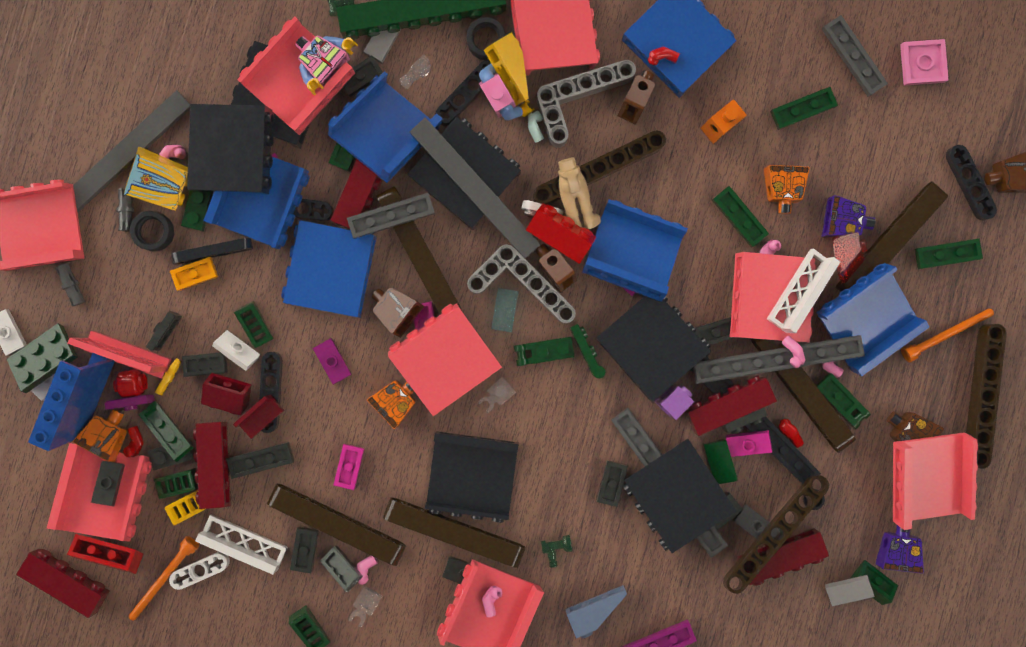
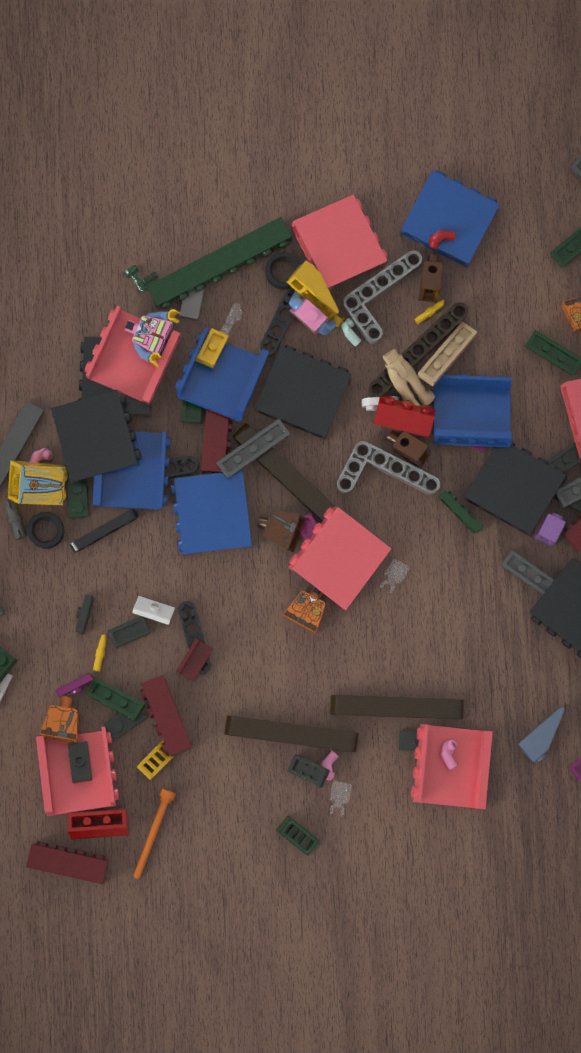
camera: 25 degrees left, 5 degrees down
(70, 402) = (32, 693): blue panel -> none
(123, 353) = (57, 645): coral fence -> none
(130, 383) = (70, 668): red head -> none
(135, 444) = (90, 722): red arm -> none
(191, 481) = (154, 740): dark green slope -> none
(194, 274) = (94, 555): light orange plate -> none
(194, 578) = (168, 820): white beam -> none
(226, 394) = (158, 650): dark red brick -> none
(238, 551) = (213, 785): white fence -> none
(260, 321) = (149, 571): dark green slope -> none
(260, 460) = (206, 699): pearl dark grey plate -> none
(304, 550) = (270, 765): pearl dark grey plate -> none
(332, 361) = (240, 593): magenta plate -> none
(349, 466) = (285, 680): dark pink plate -> none
(363, 75) = (189, 332): pearl dark grey plate -> none
(384, 96) = (212, 348): none -> yellow plate
(471, 476) = (395, 653): black panel -> none
(474, 187) = (317, 402): dark grey tile -> none
(504, 310) = (376, 499): clear light blue tile -> none
(545, 351) = (423, 524): dark green plate -> none
(550, 547) = (485, 692): clear green piece -> none
(612, 483) = (520, 619): pearl dark grey plate -> none
(624, 132) = (429, 312): none -> yellow piece
(628, 181) = (447, 354): none -> tan plate
(724, 121) = (511, 276): orange torso -> none

